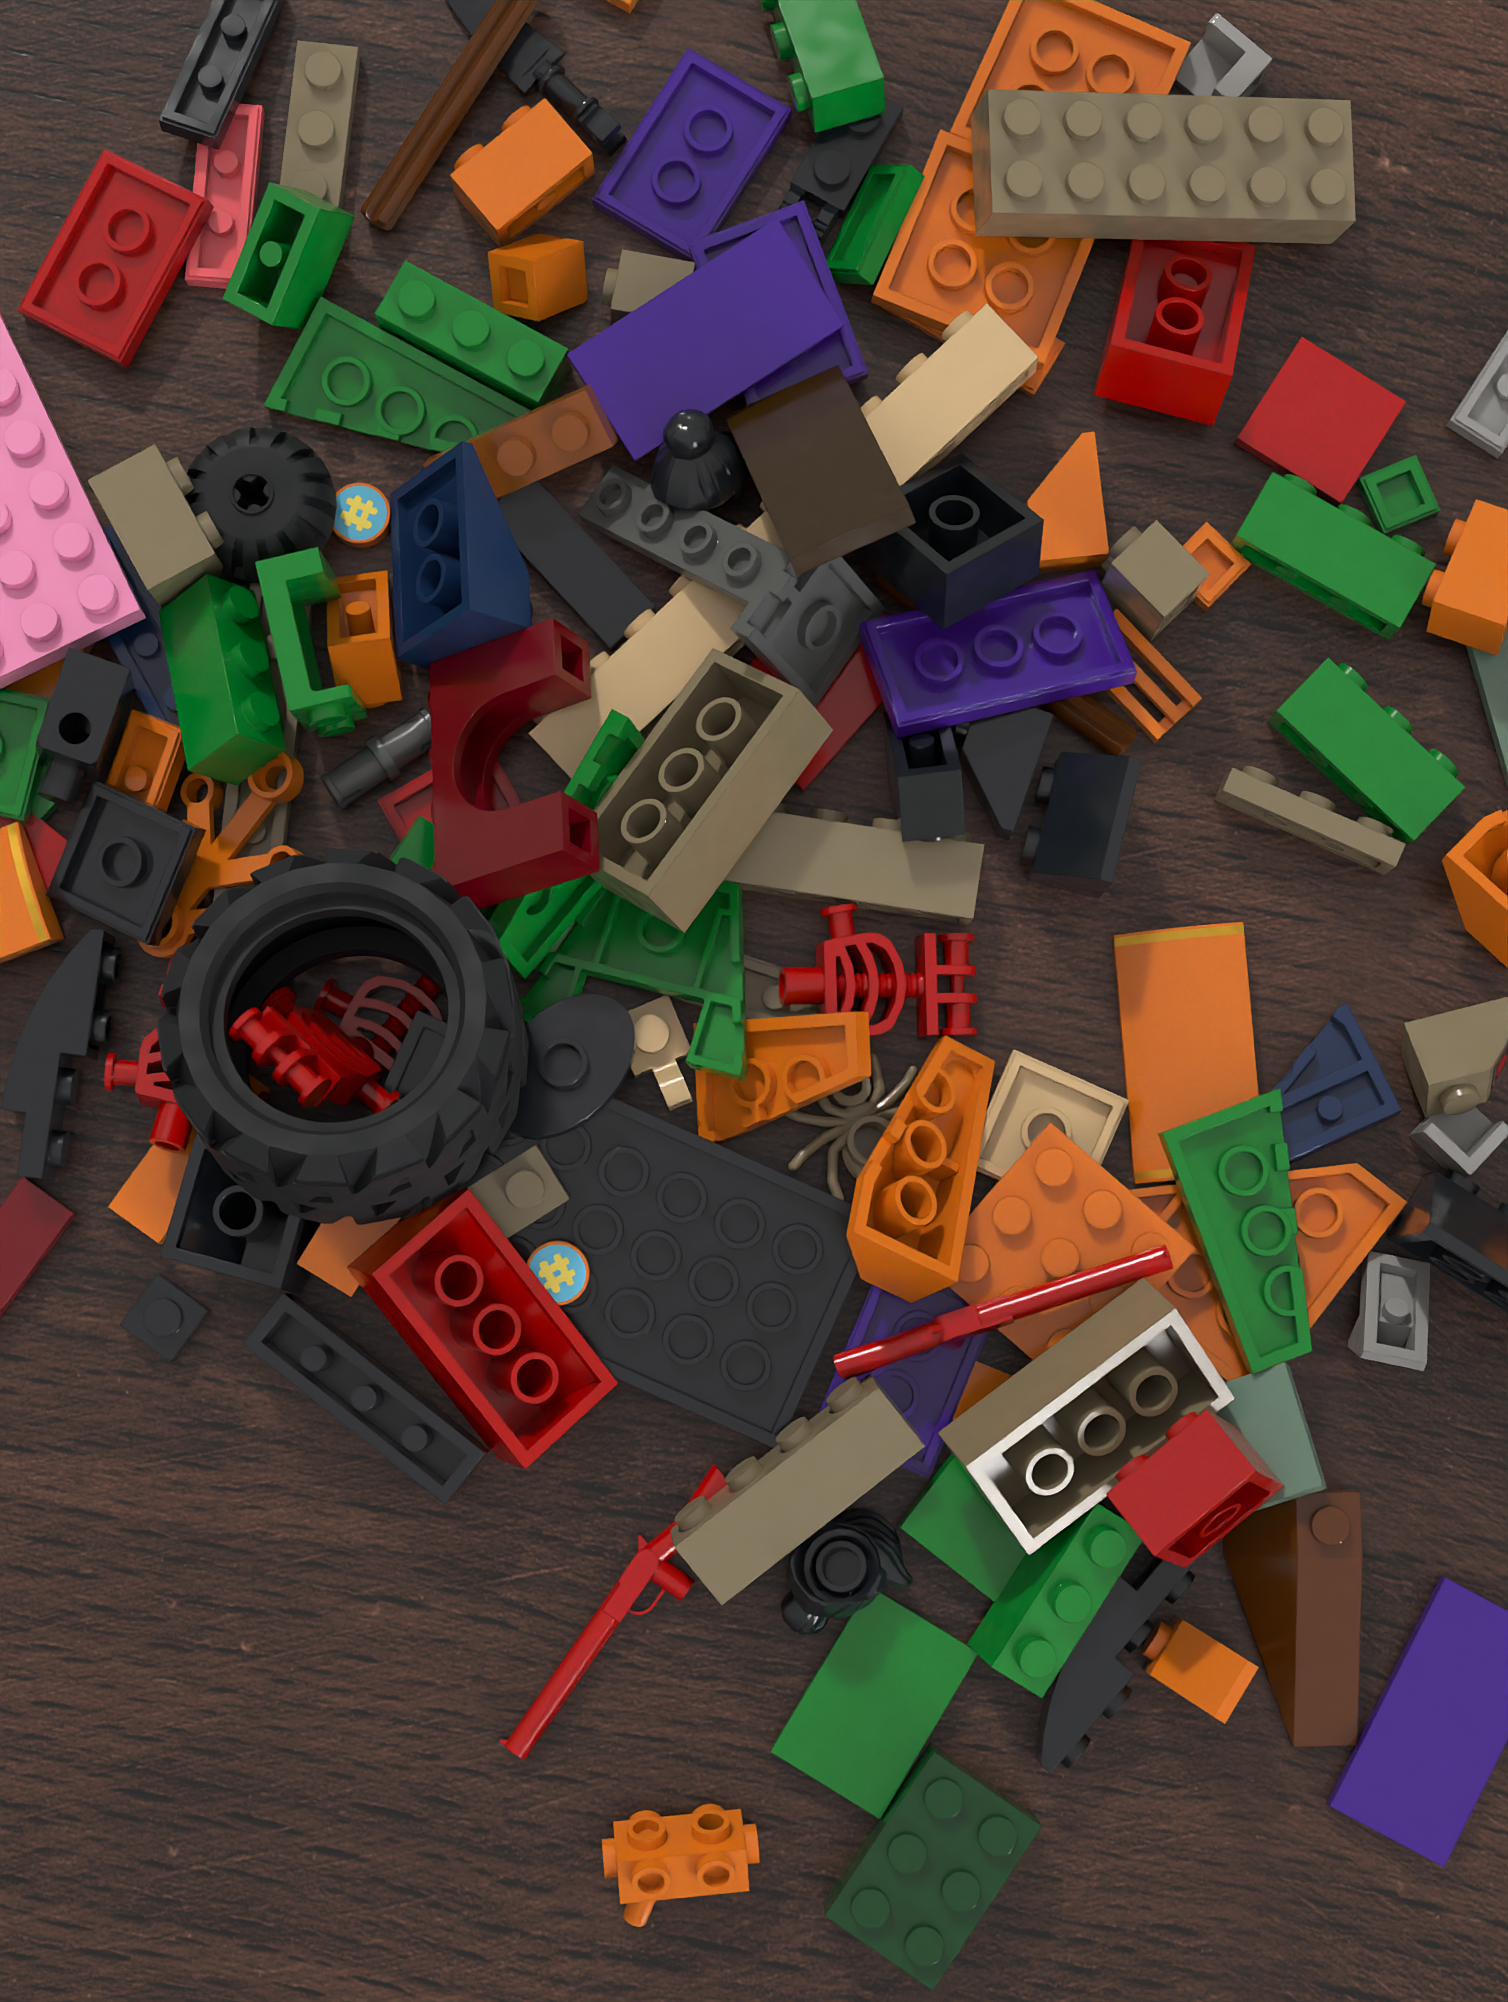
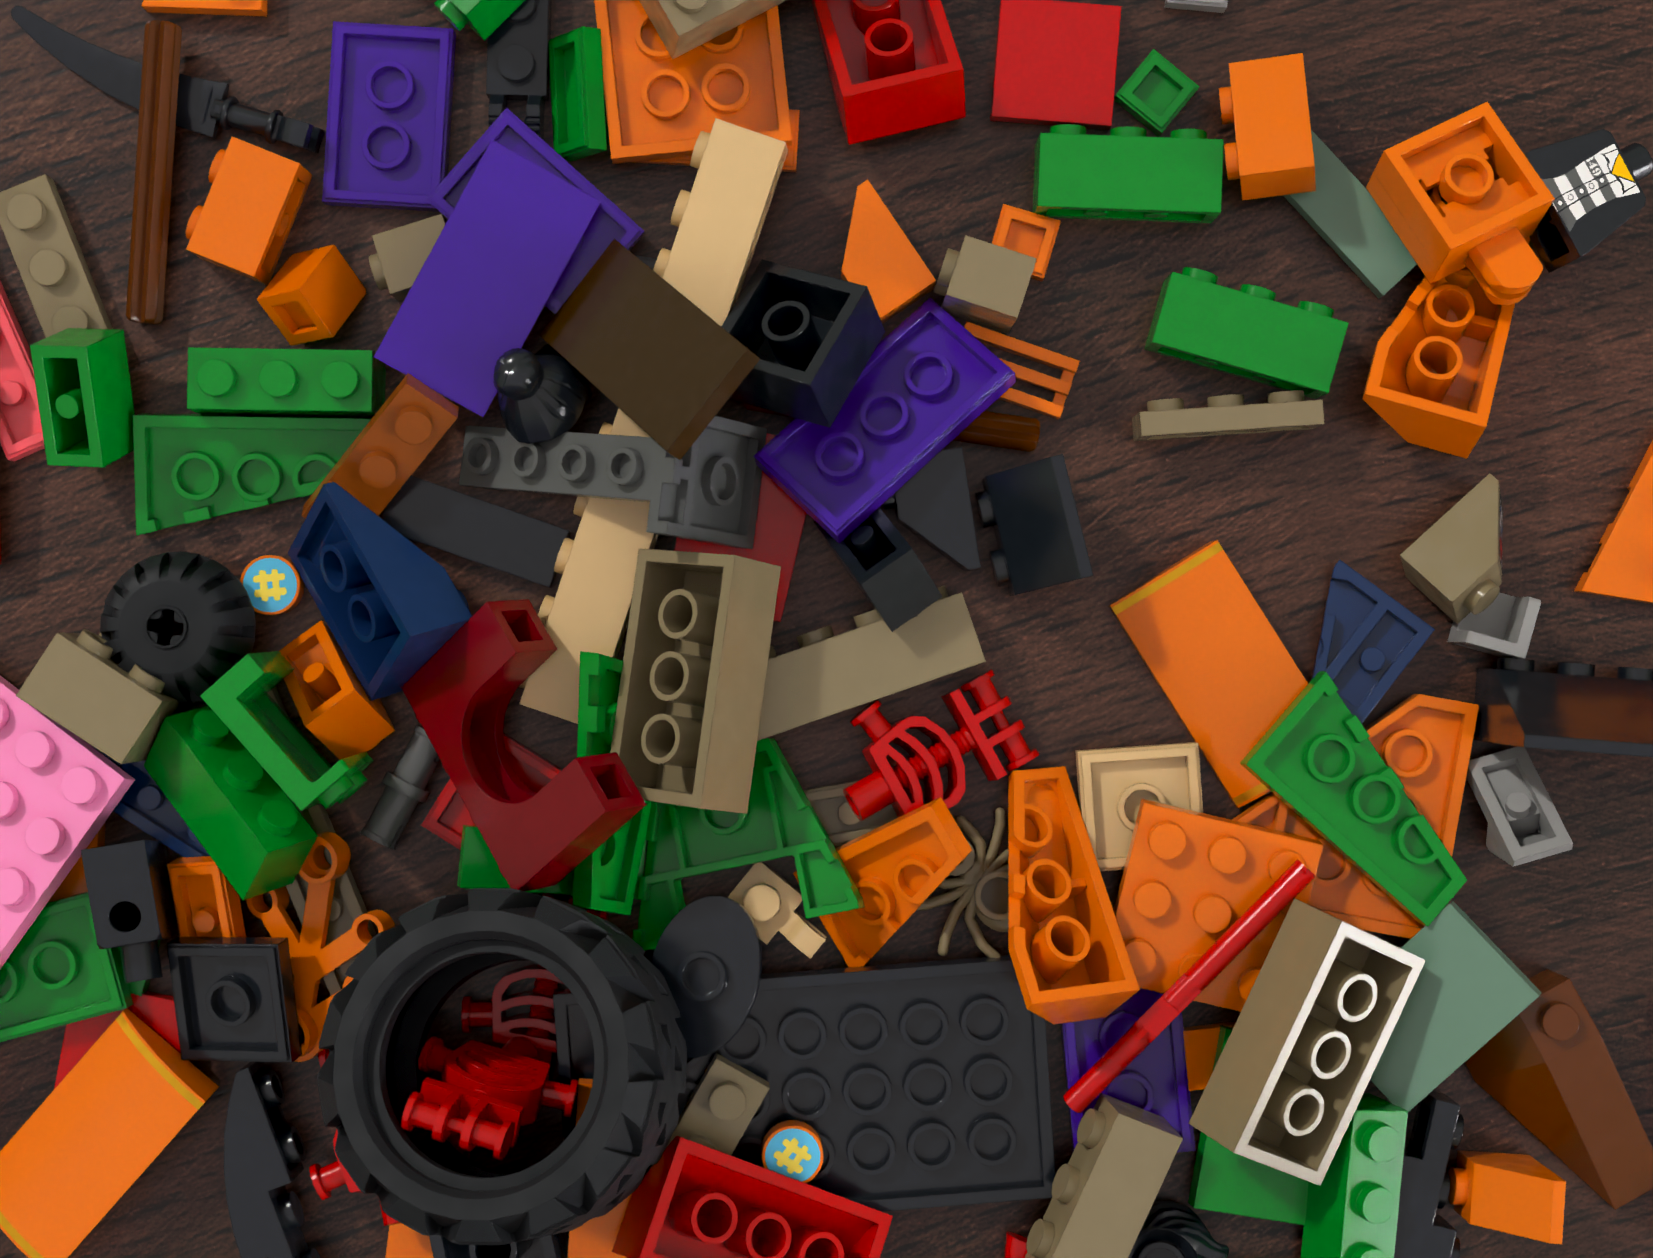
camera: 25 degrees left, 5 degrees up
(1193, 1488) = (1434, 1060): red brick -> none

